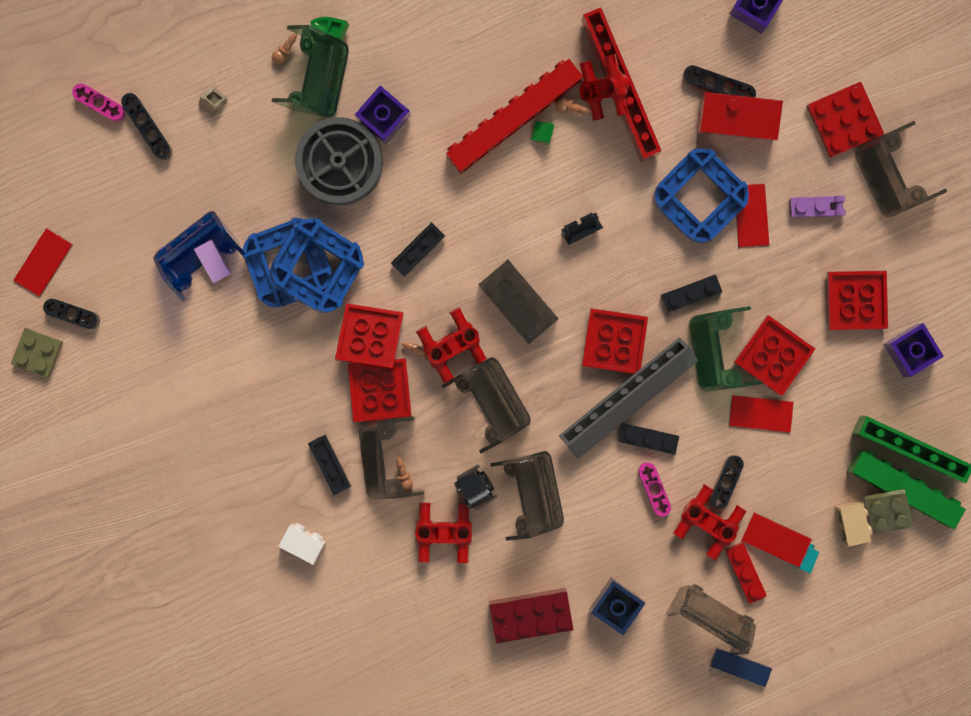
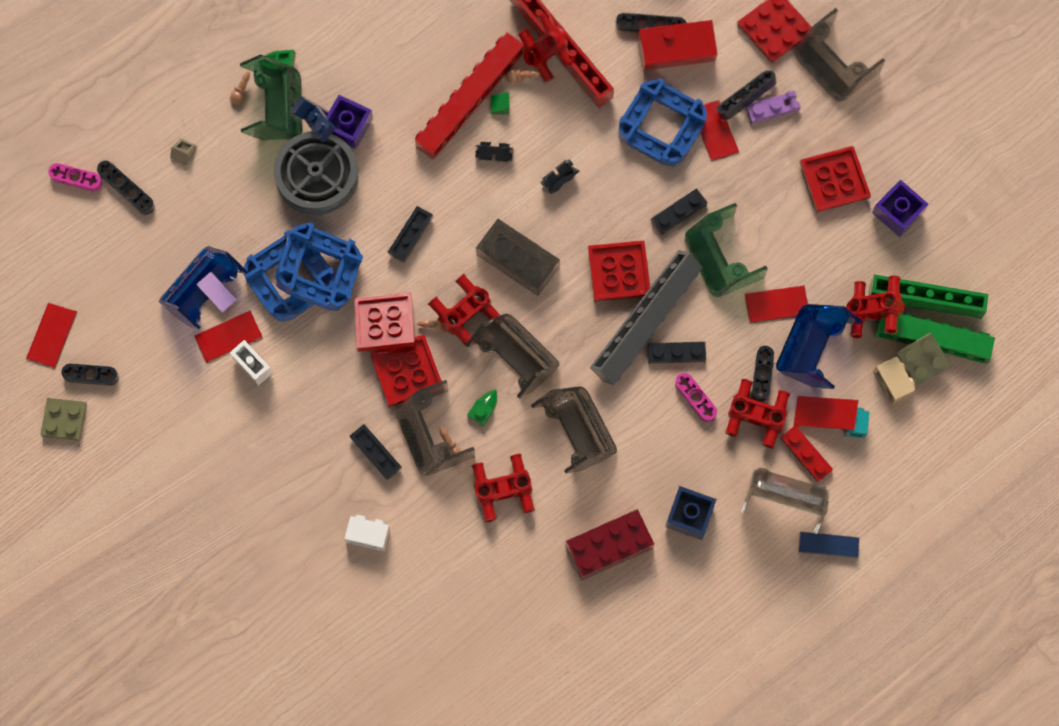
camera: 10 degrees left, 15 degrees down
(215, 308) = (228, 335): none -> red piece
(228, 345) = (251, 363): none -> white brick
(351, 105) = (315, 117): none -> dark blue bracket
(446, 445) = (483, 407): none -> green plate
(475, 487) = (523, 434): black brick -> none
(517, 179) = (502, 151): none -> black hinge
(774, 355) = (773, 245): red plate -> none
(779, 462) = (808, 339): none -> clear blue windscreen
(796, 190) = (730, 107): none -> black beam
(857, 449) = (877, 306): none -> red piece

